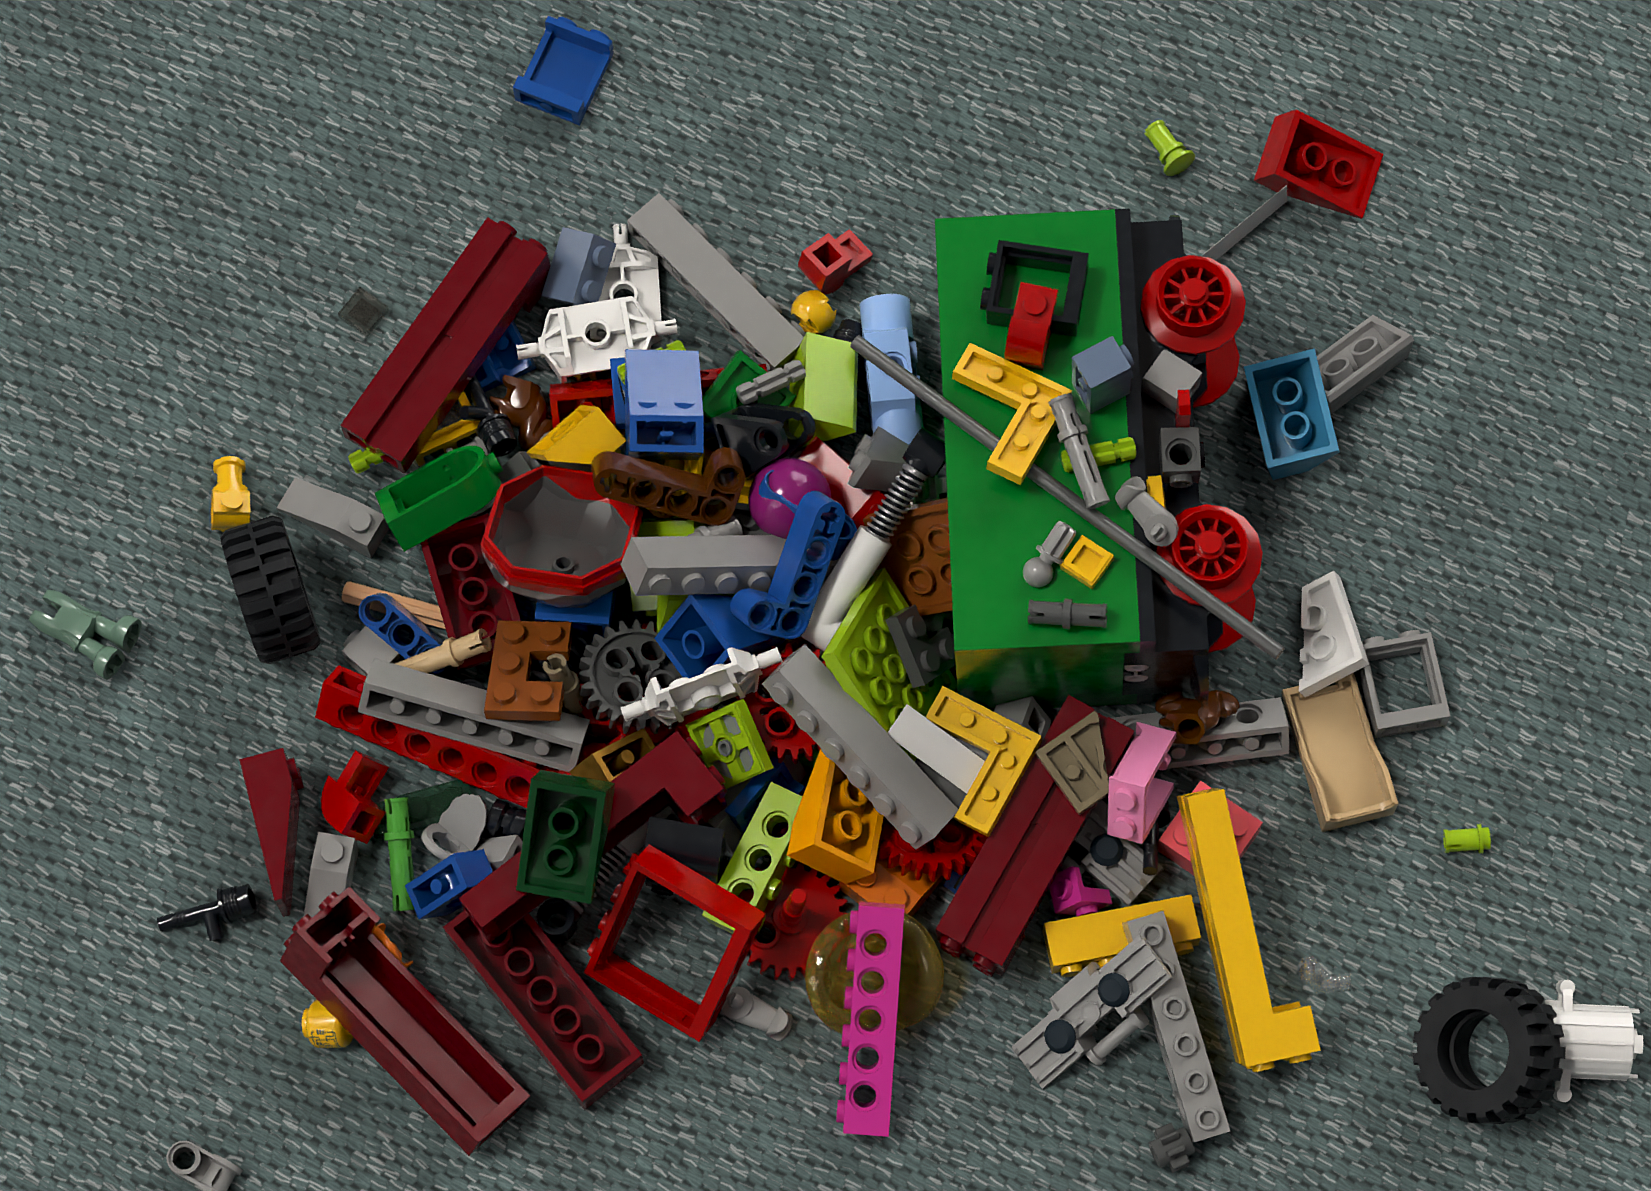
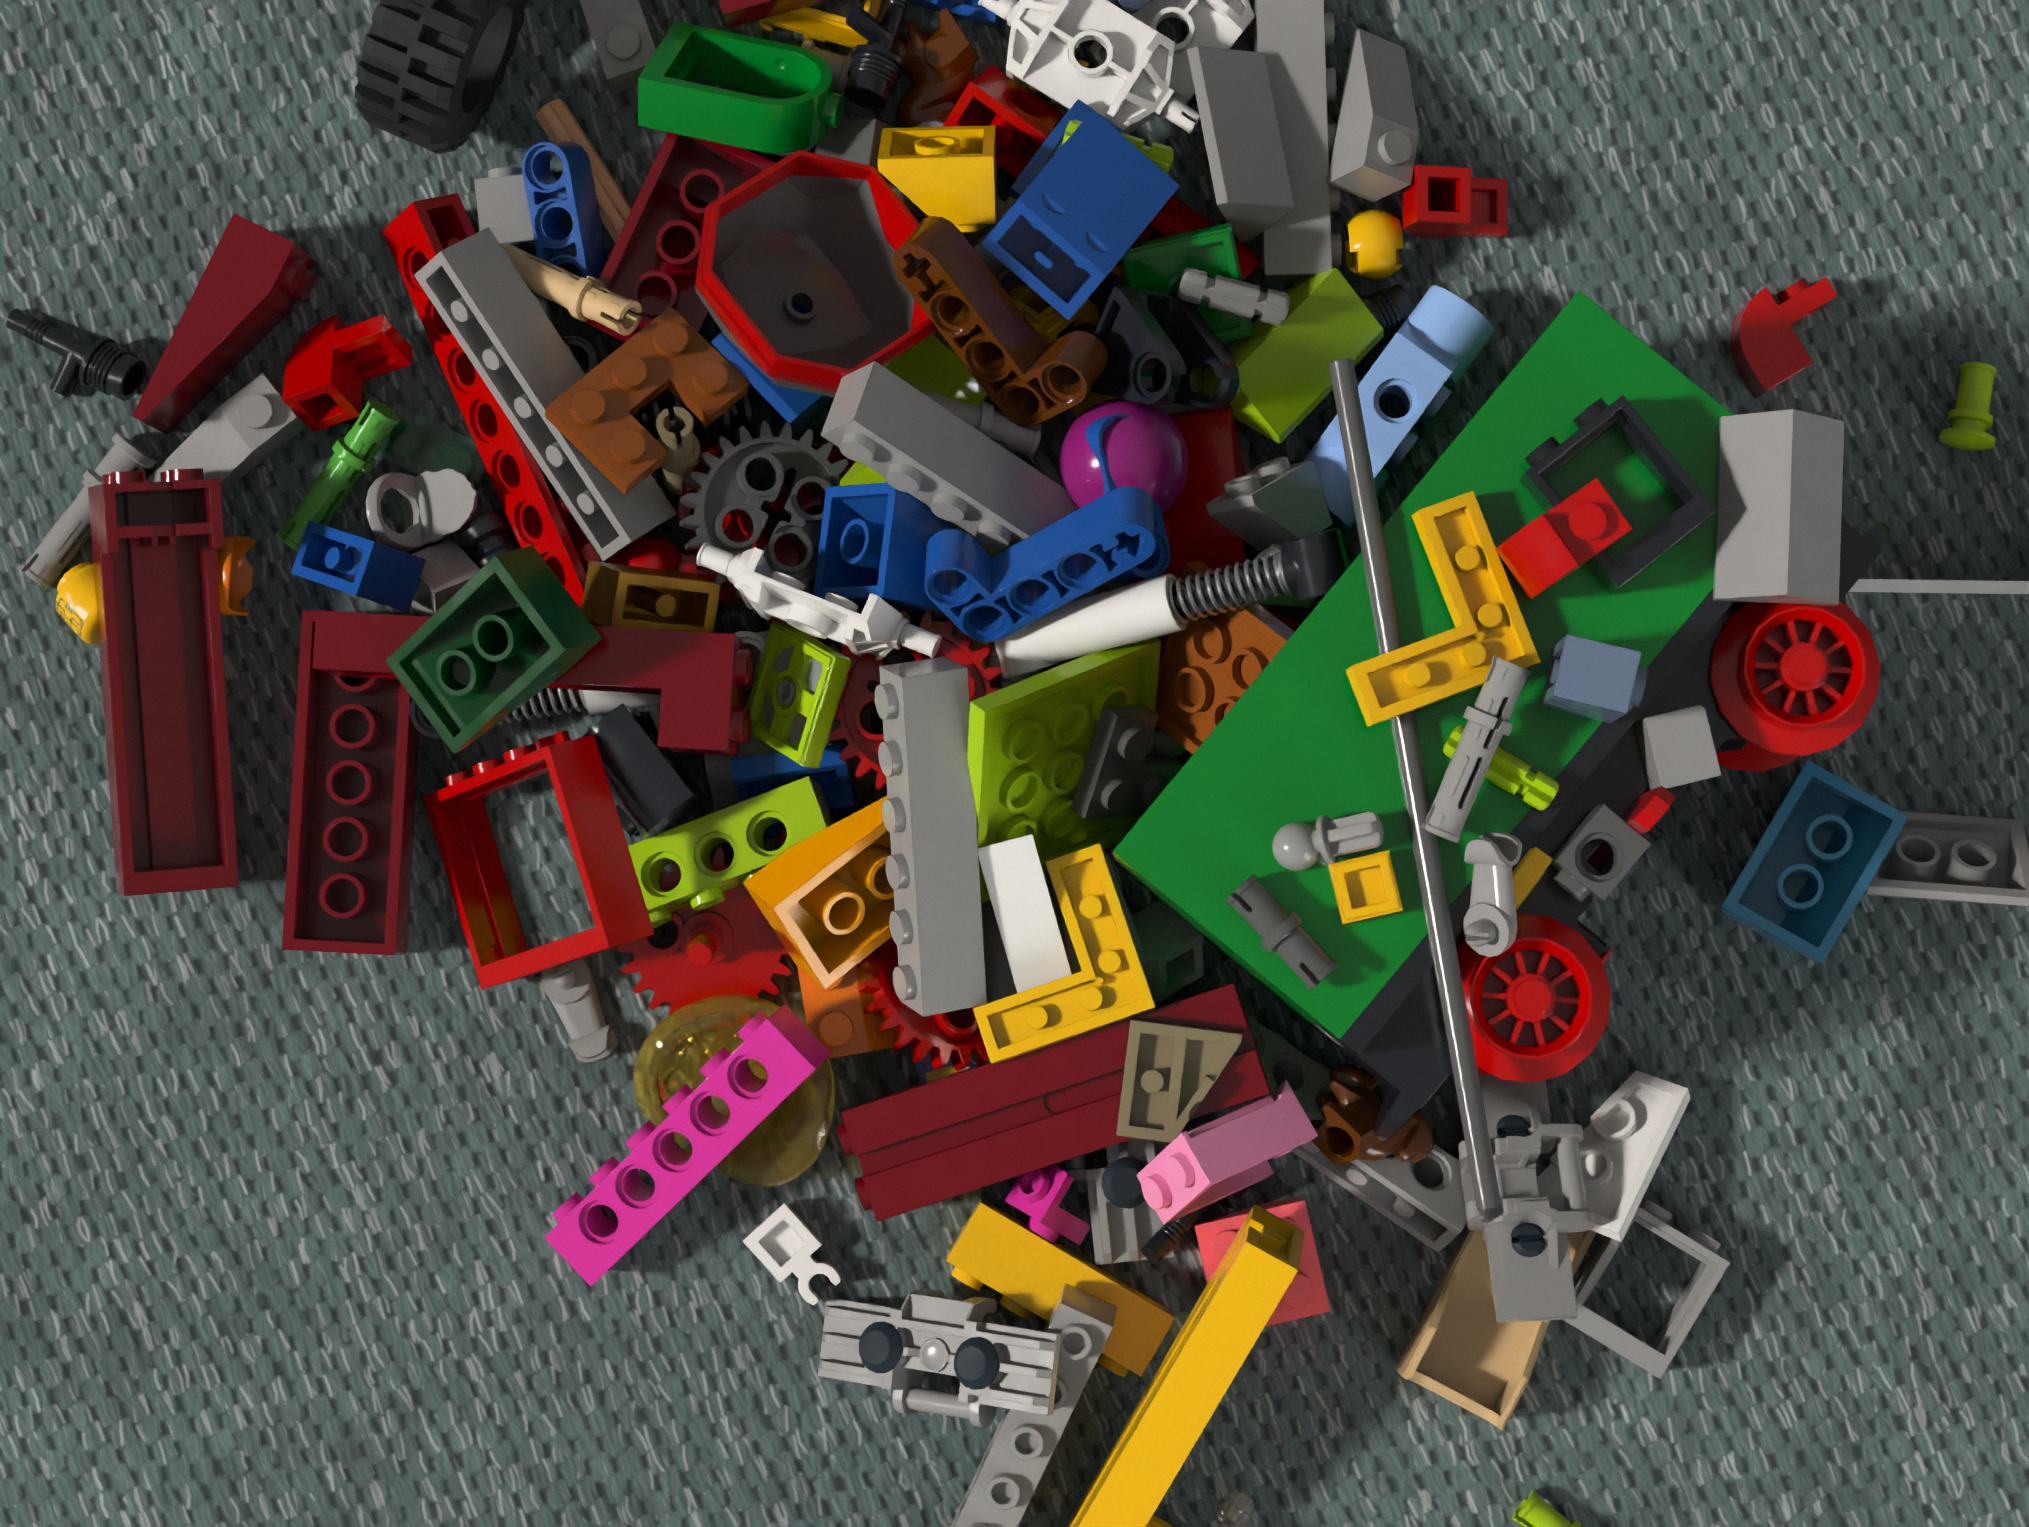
camera: 45 degrees right, 15 degrees up
(283, 988) = (74, 524): none -> light grey pin
(706, 310) = (1241, 138): none -> light grey slope
(763, 254) = (1375, 121): none -> light grey slope
(967, 1036) = (787, 1246): none -> white plate
(1035, 190) = (1762, 334): none -> red brick
(1116, 233) = (1779, 508): none -> light grey slope
(1293, 695) = (1524, 1235): none -> light grey piece

